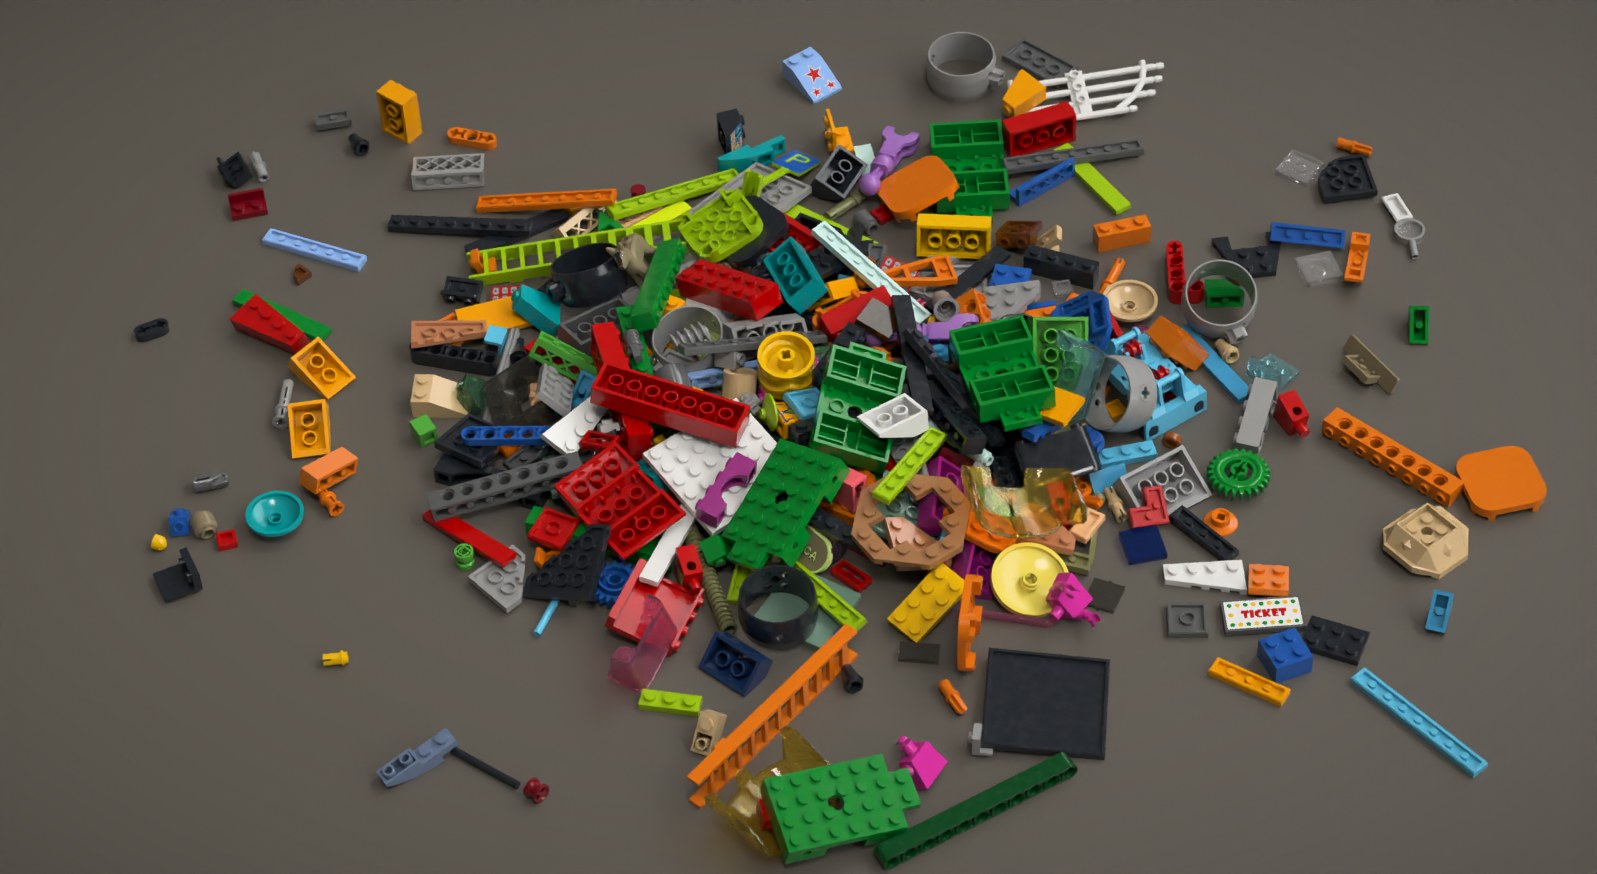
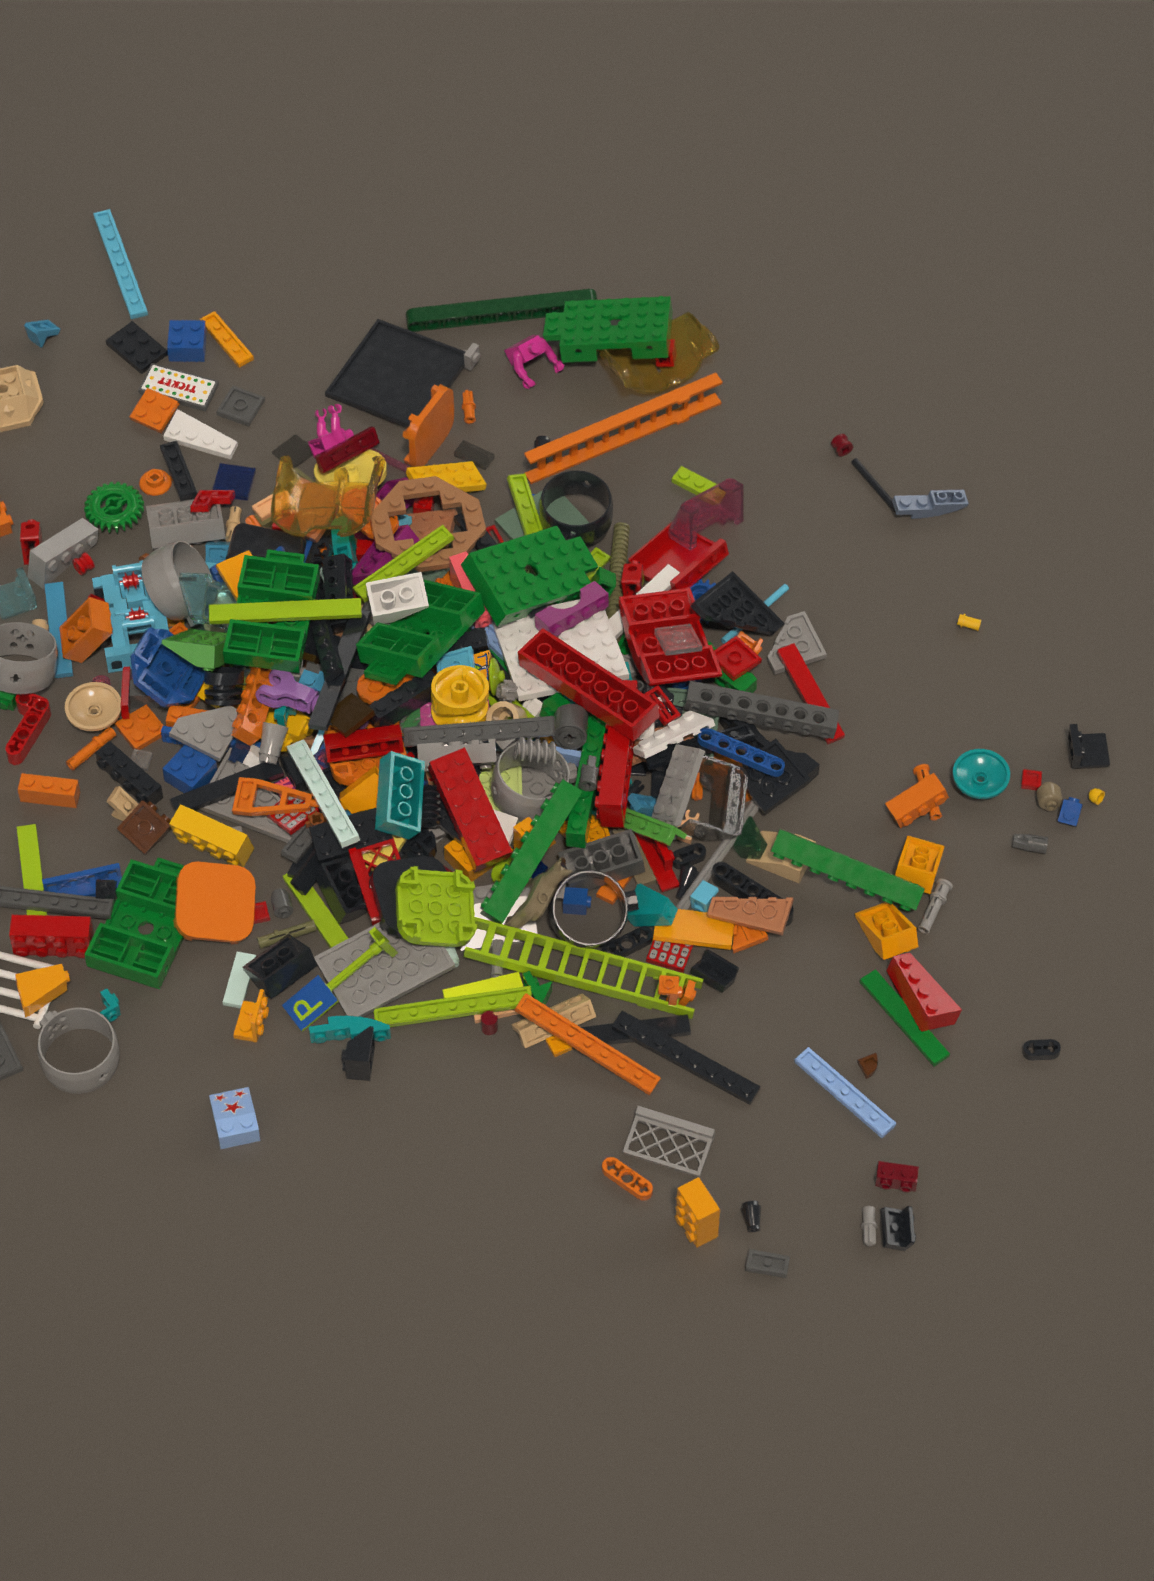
camera: 160 degrees left, 10 degrees up
(372, 379) = (847, 869): none -> green brick
(423, 431) = (812, 818): bright green panel -> none
(464, 557) = (822, 675): bright green wheel -> none
(490, 241) = (670, 986): none -> orange bracket
(609, 497) = (678, 639): none -> clear tile
(708, 731) = (680, 443): tan slope -> none
(735, 663) = (630, 494): dark blue slope -> none
(892, 151) = (216, 967): medium lavender piece -> none
(960, 111) = (112, 1005): none -> teal bracket
(960, 383) = (286, 611): none -> lime tile
(1017, 173) = (106, 889): none -> black bracket
(1042, 590) = (347, 450): none -> dark red tile
(1230, 418) = (83, 563): none -> red wheel

